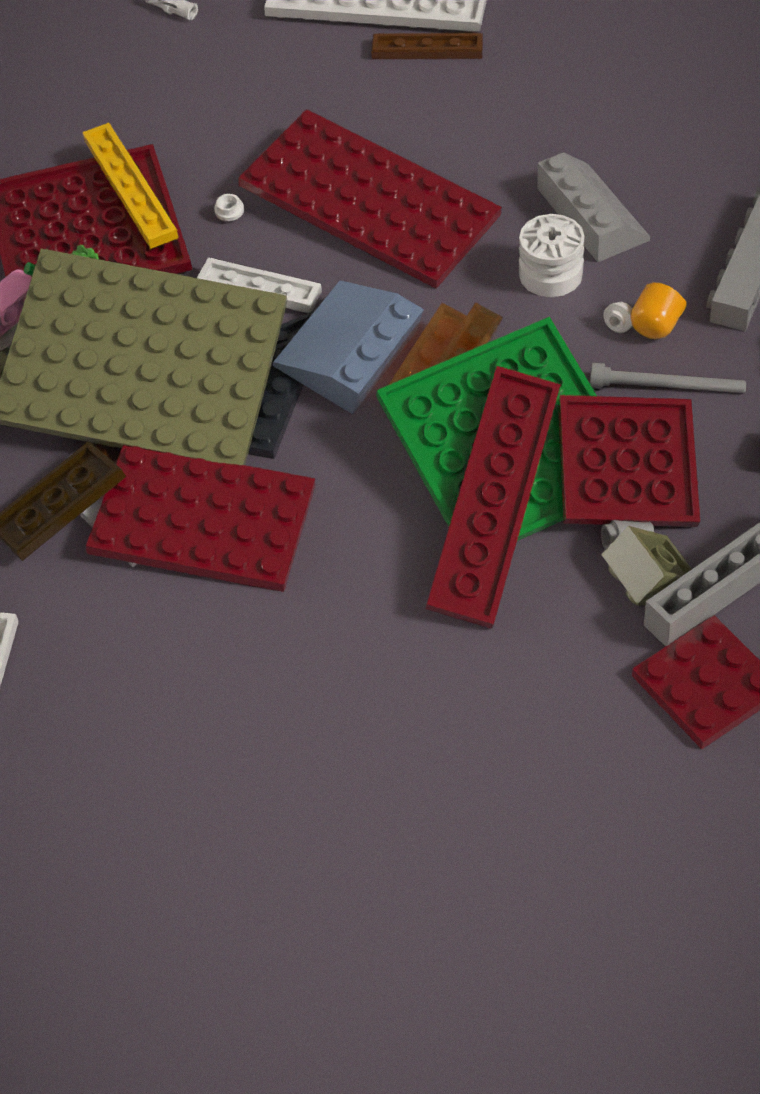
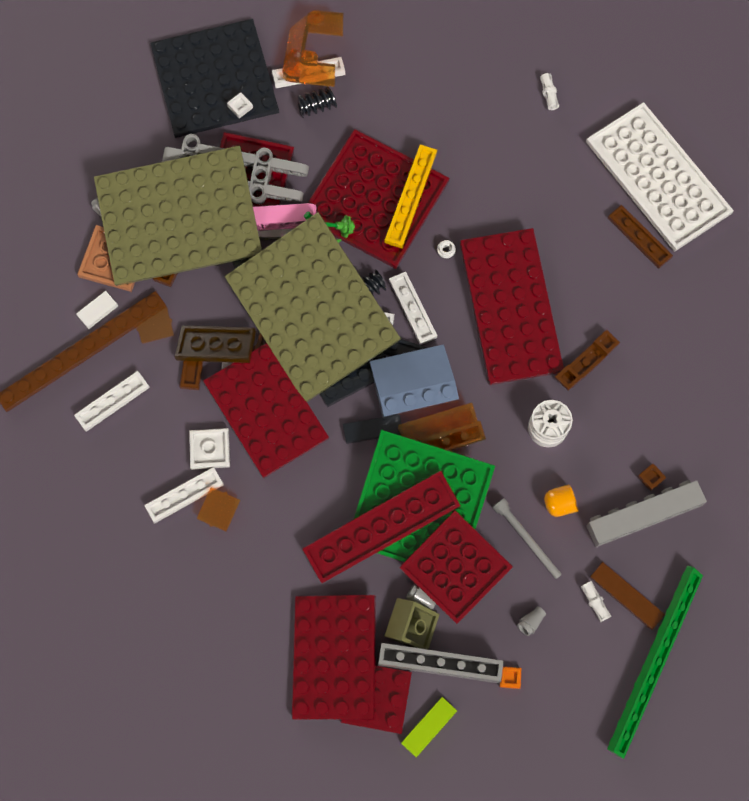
camera: 40 degrees right, 20 degrees up
(59, 563) = (191, 375): none -> reddish brown tile
(178, 614) = (209, 448): none -> white plate
(204, 689) = (183, 495): none -> white plate
(268, 664) = (218, 509): none -> clear orange piece
(353, 434) = (371, 428): none -> black tile
(514, 175) = (587, 361): none -> reddish brown slope
(581, 195) = (604, 411): light grey slope -> none
(609, 682) = (334, 658): none -> dark red plate
(618, 317) = (545, 484): white plate -> none
(717, 220) = (651, 477): none -> reddish brown plate

